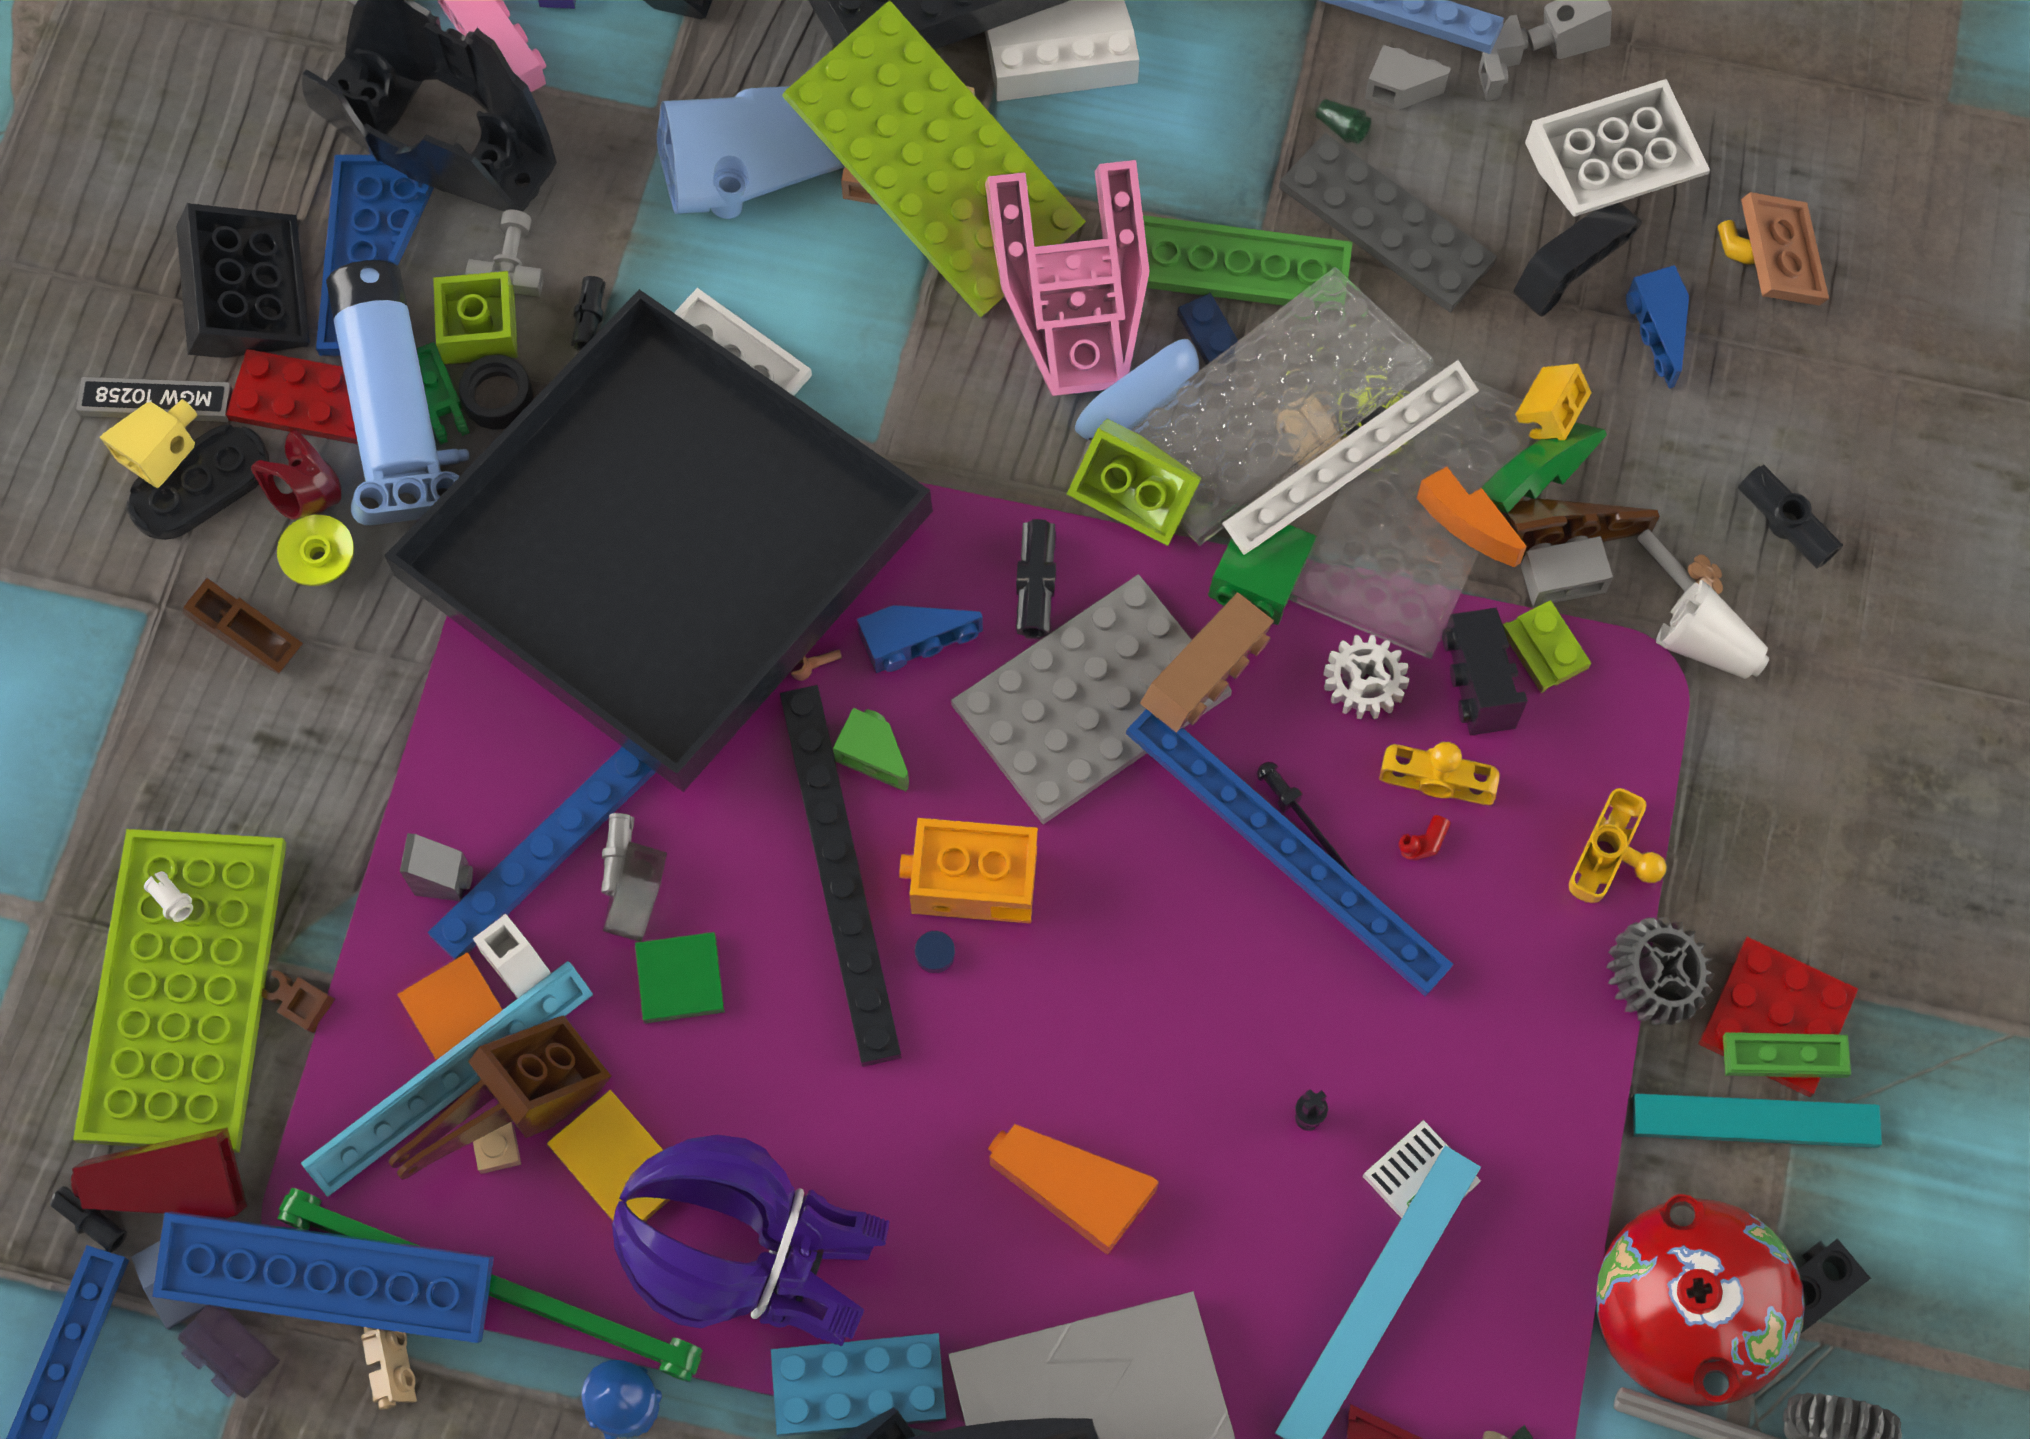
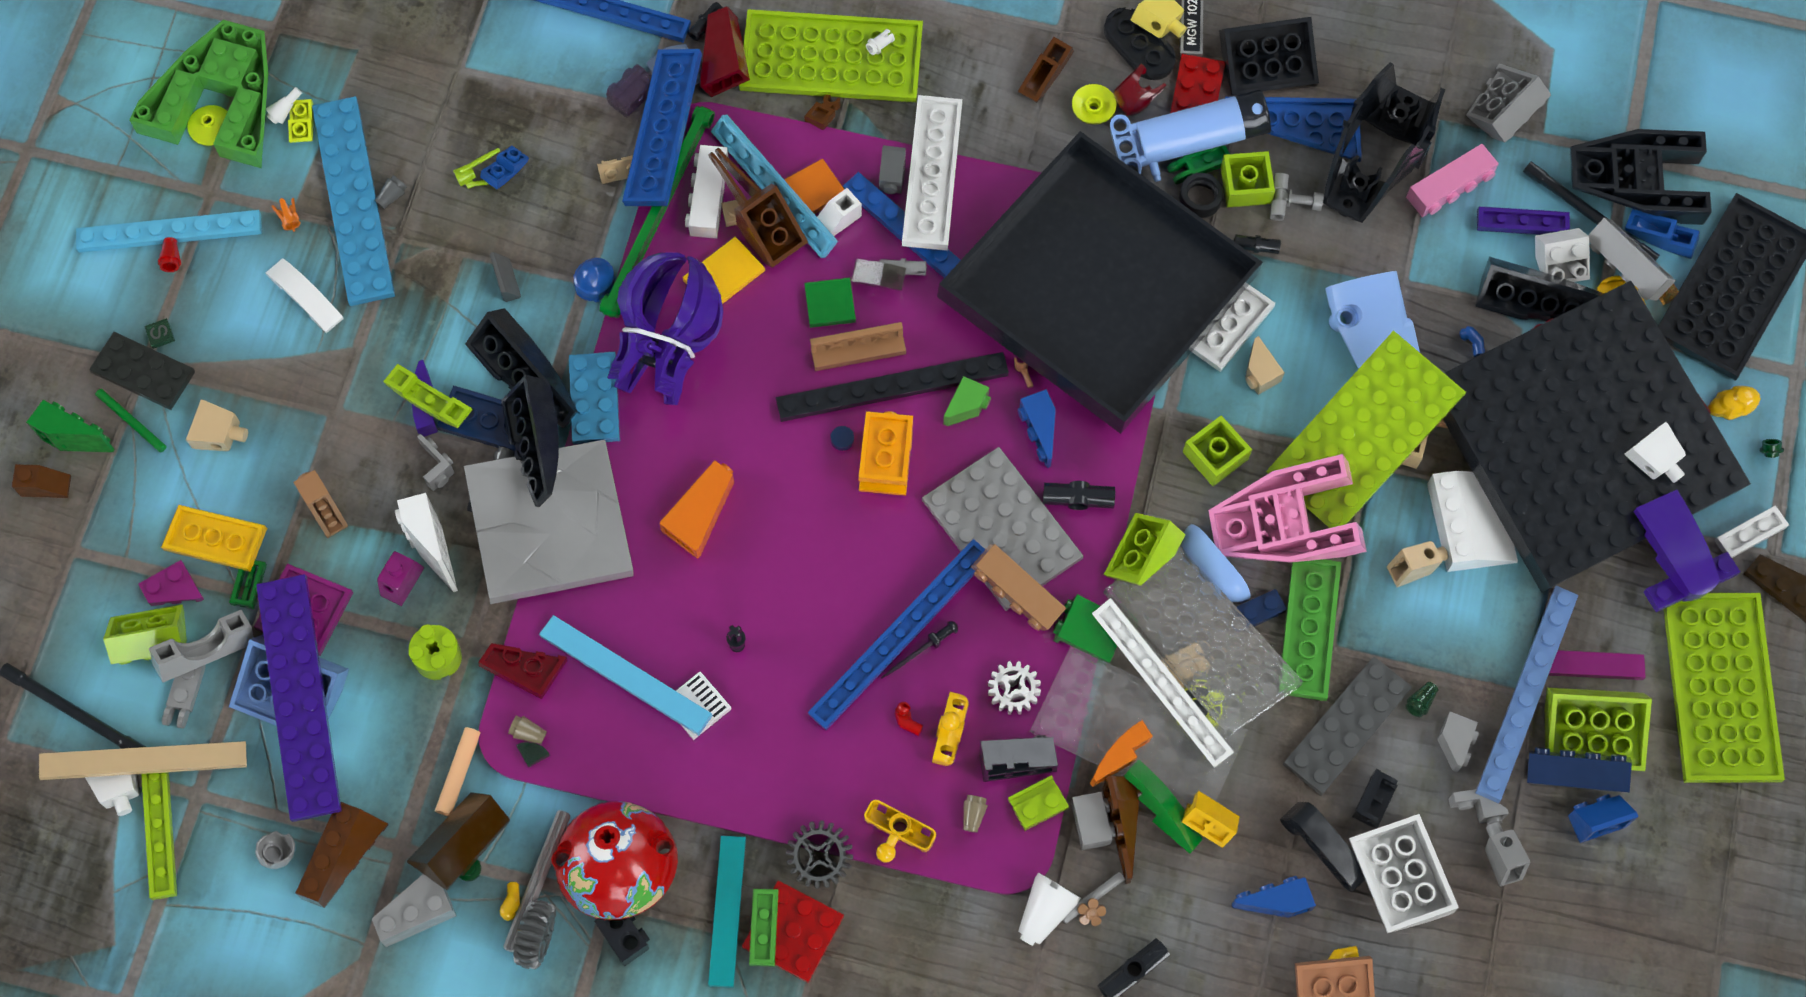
camera: 90 degrees right, 0 degrees up
(439, 803) = (932, 173): none -> white plate
(457, 1194) = (707, 195): none -> white brick
(763, 18) = (1476, 339): none -> blue arm
(770, 928) = (858, 346): none -> medium nougat fence
(807, 312) = (1262, 368): none -> tan slope
(956, 376) = (1217, 450): none -> lime brick
(1131, 98) = (1416, 562): none -> tan torso
(1498, 192) = (1375, 799): none -> black hinge
(1571, 737) = (973, 812): none -> dark tan cone

